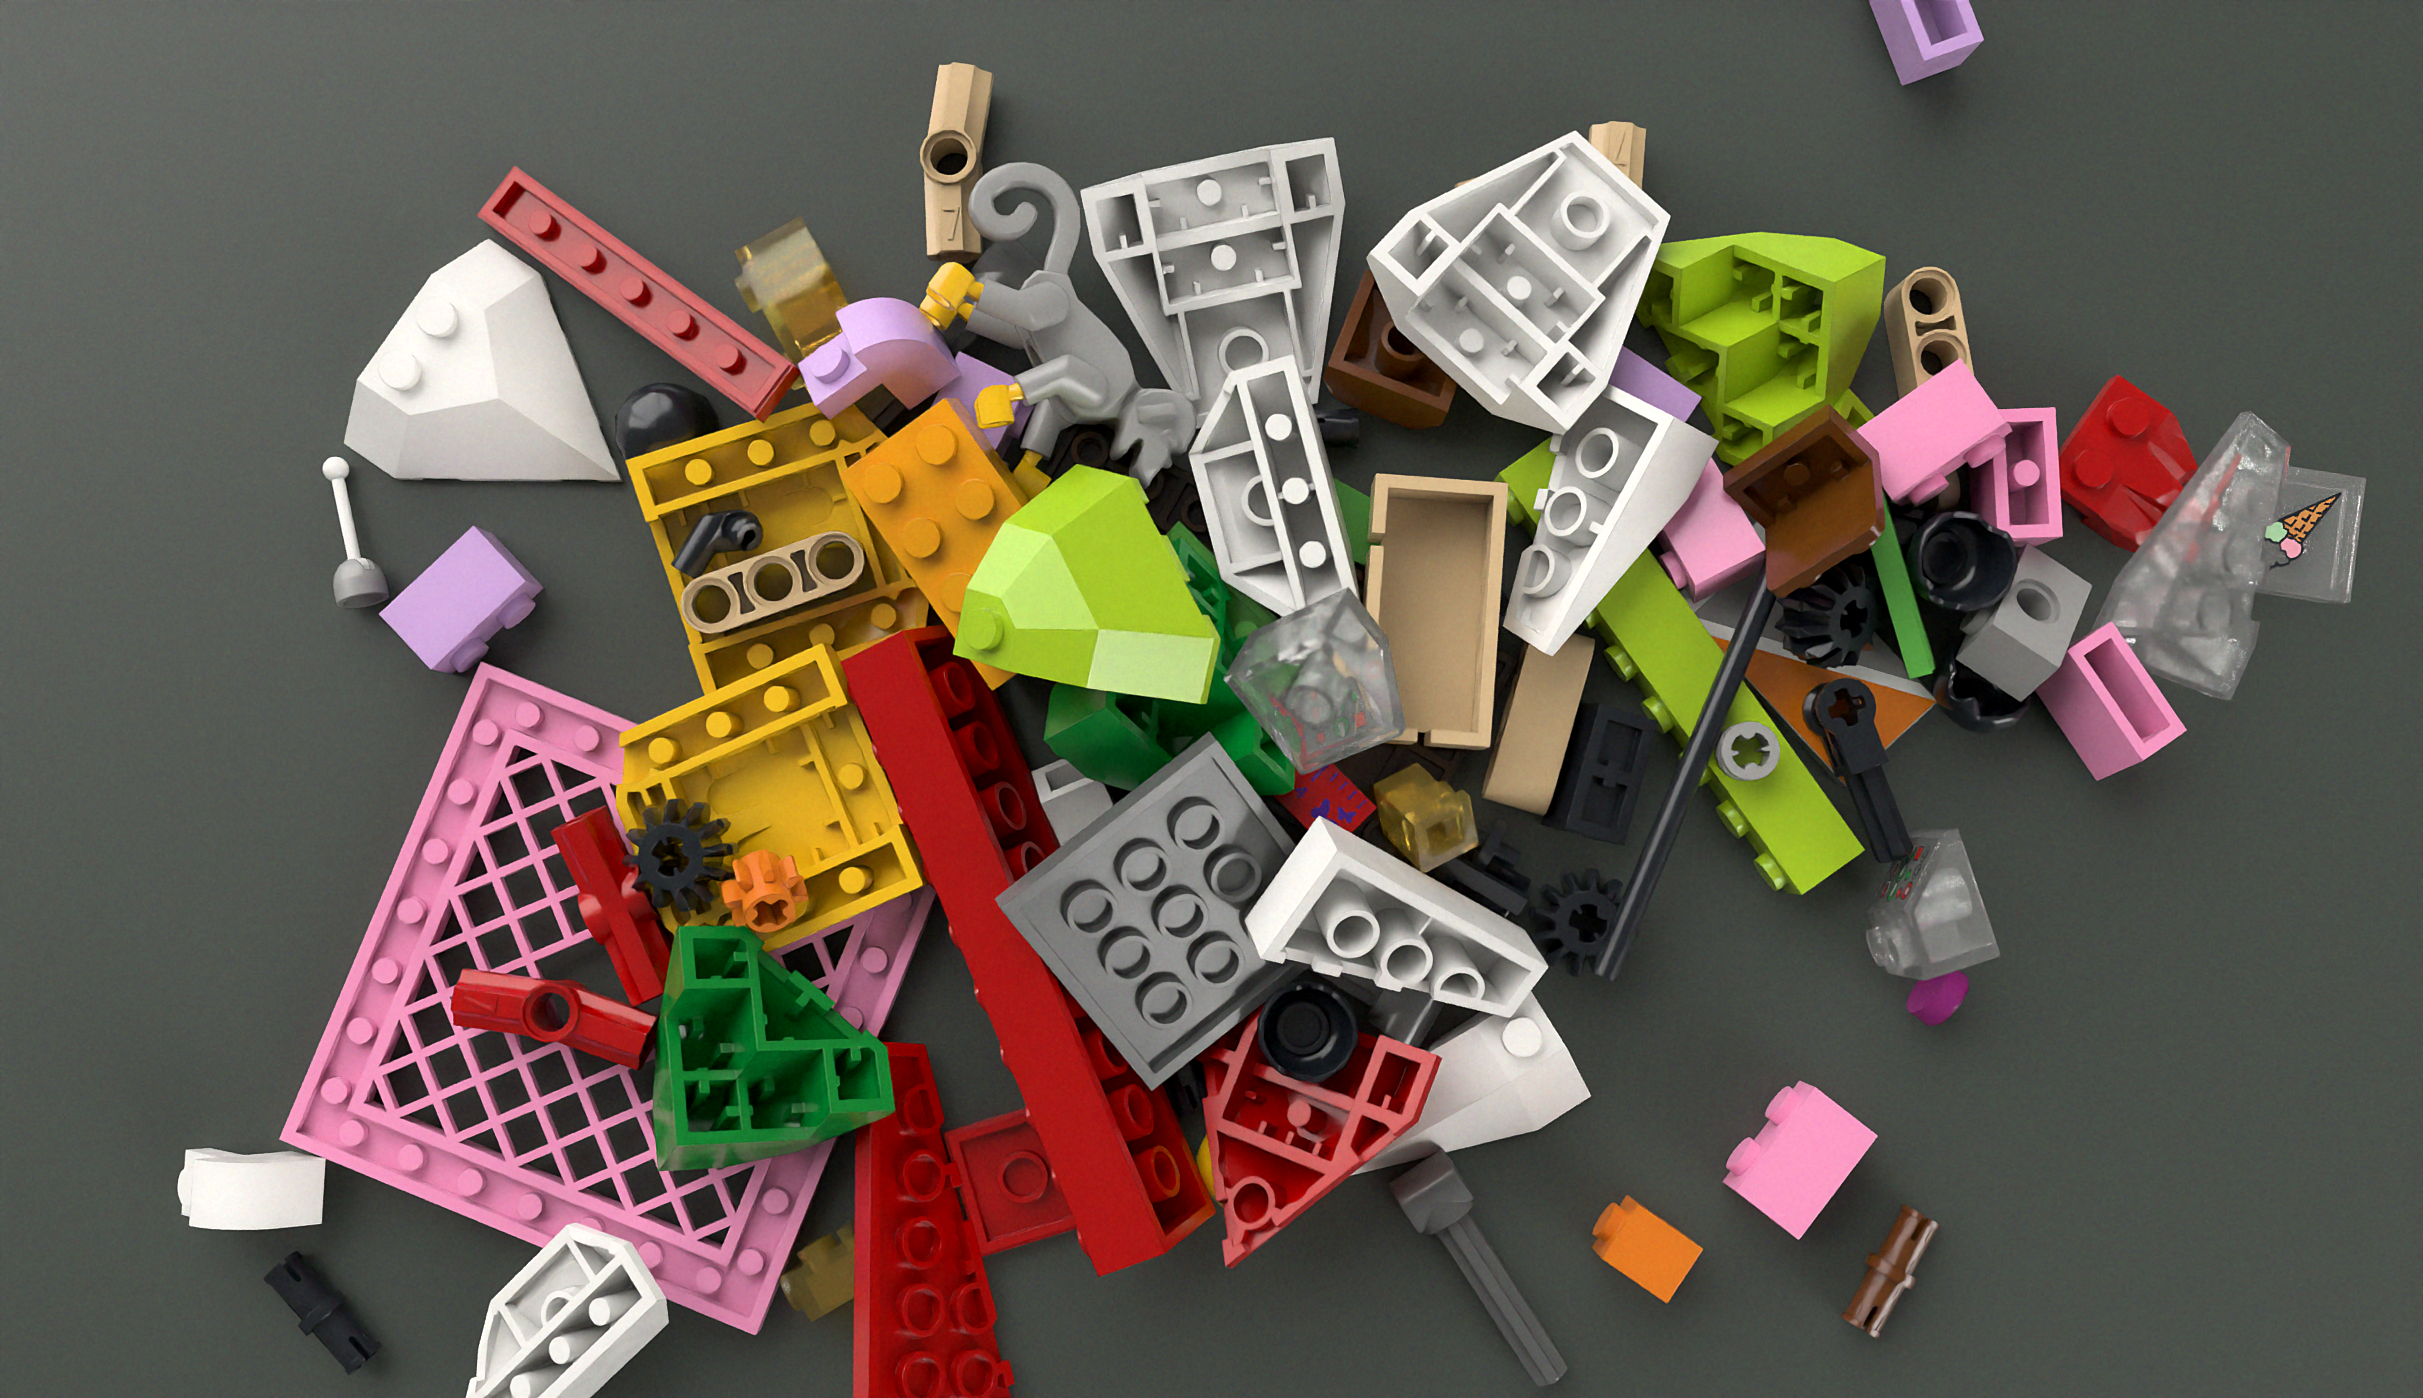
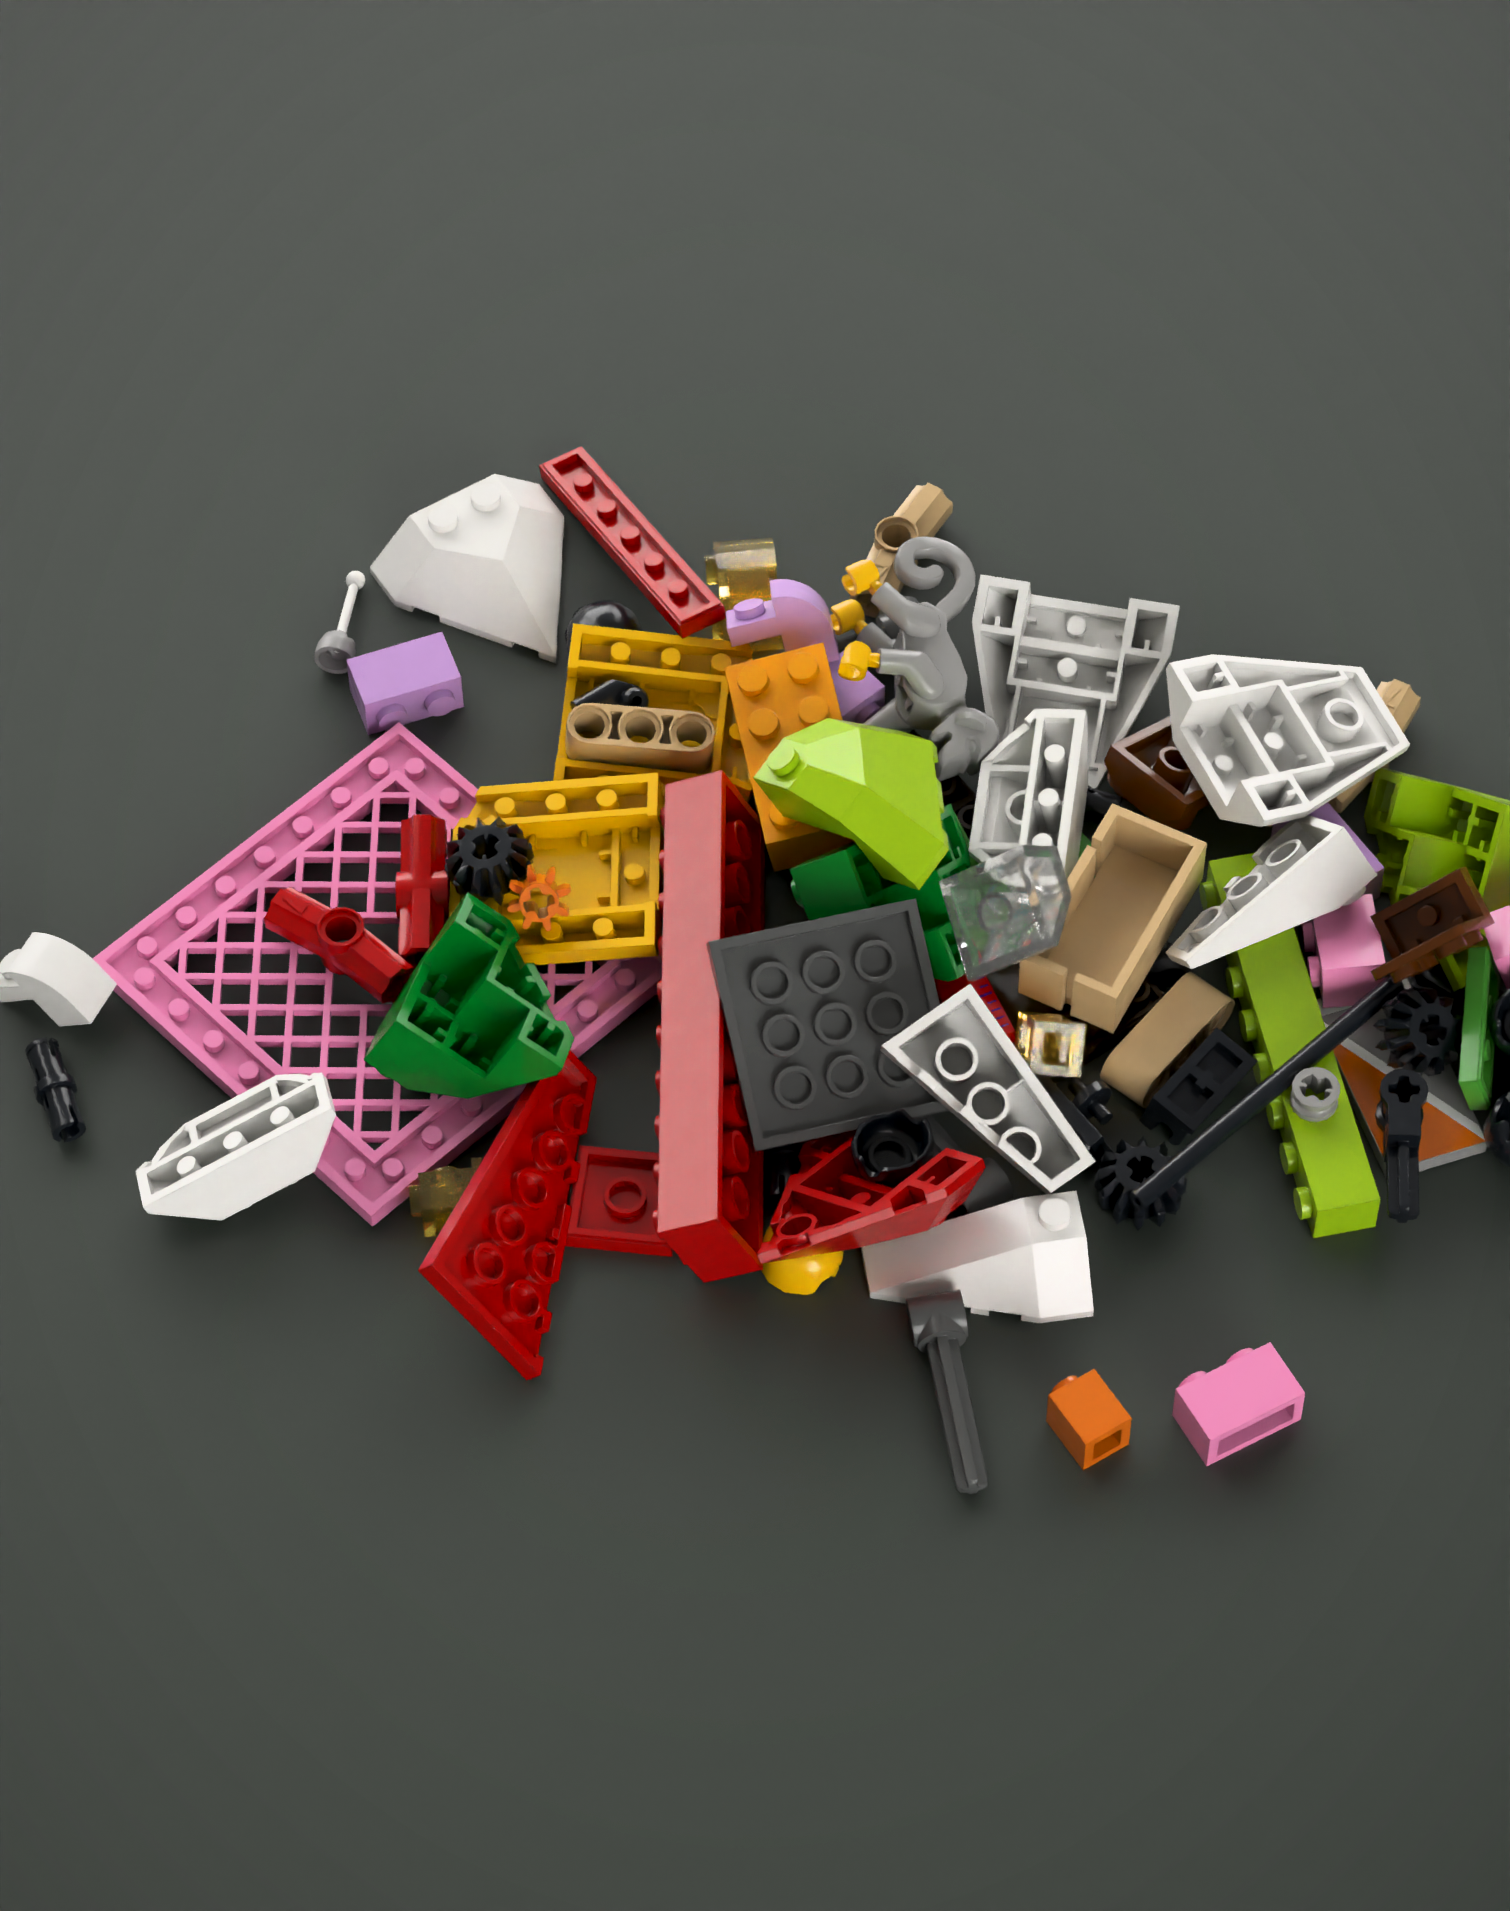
camera: 20 degrees right, 30 degrees down
(1890, 1271) = (1279, 1516): reddish brown pin -> none
(1930, 911) = (1409, 1260): clear slope -> none
(1938, 997) = (1400, 1333): magenta tile -> none

